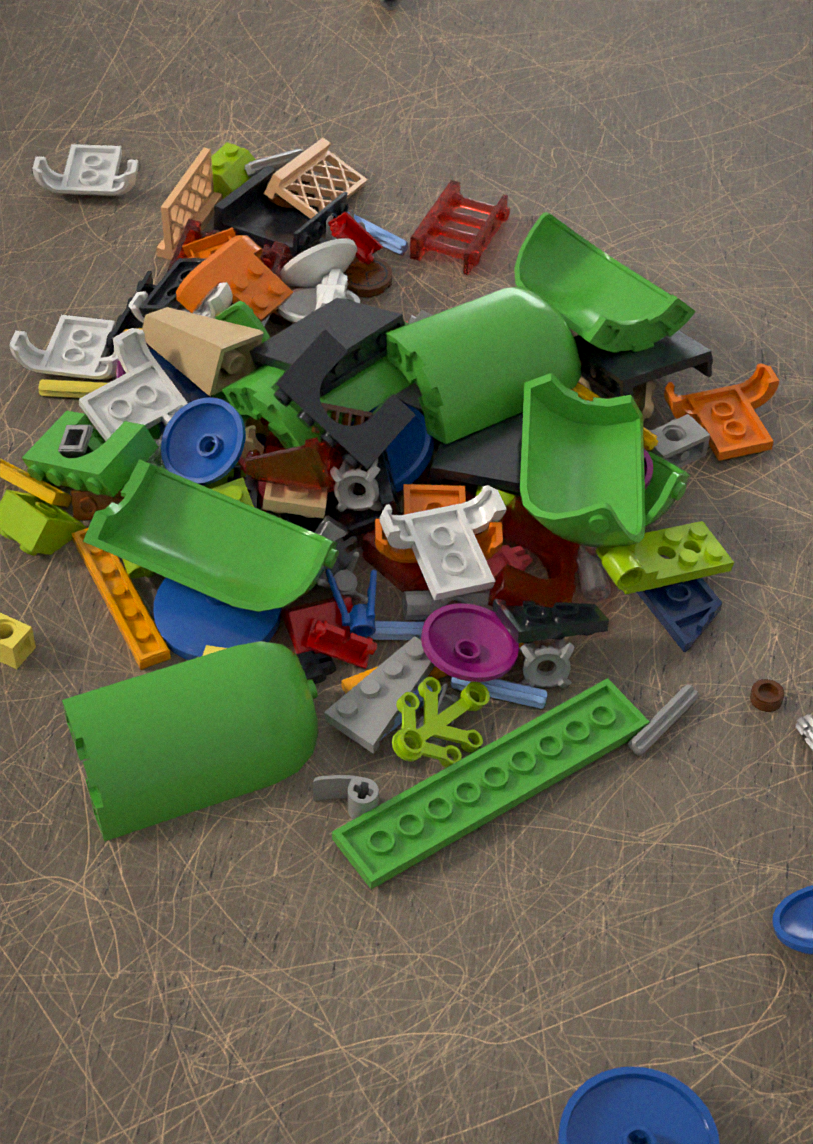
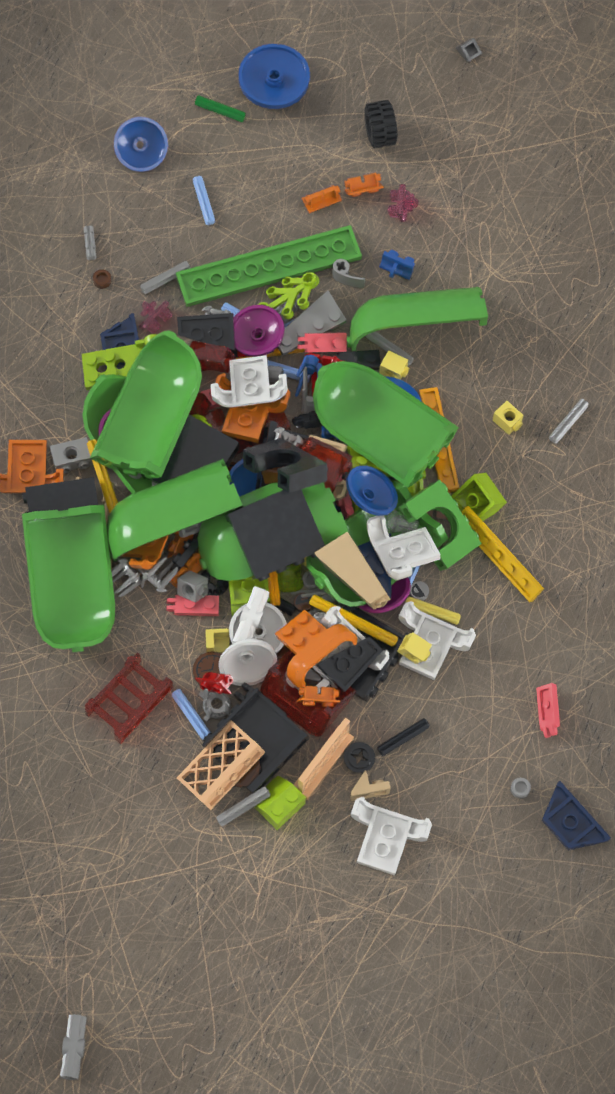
camera: 165 degrees left, 20 degrees up
(75, 440) = (446, 528): flat silver slope -> none
(91, 262) = (403, 737): none -> black axle
(95, 318) = (415, 648): none -> light yellow brick
(122, 204) = (363, 789): none -> tan slope
(134, 234) = (354, 750): none -> black gear
(277, 838) = (397, 265): none -> blue hips
(278, 954) = (405, 203): none -> clear pink hips
(331, 529) = (309, 427): flat silver slope -> none
(352, 669) = (324, 342): none -> coral hinge
(369, 966) = (370, 184): none -> orange hinge
(373, 1082) = (380, 123): none -> black tyre
(379, 295) = (217, 640): none -> light yellow panel
(444, 927) = (322, 198): none -> orange hinge
(653, 652) = (150, 322): none -> clear pink hips
(662, 867) = (203, 200): none -> light blue axle
(717, 1058) = (220, 108): none -> green axle

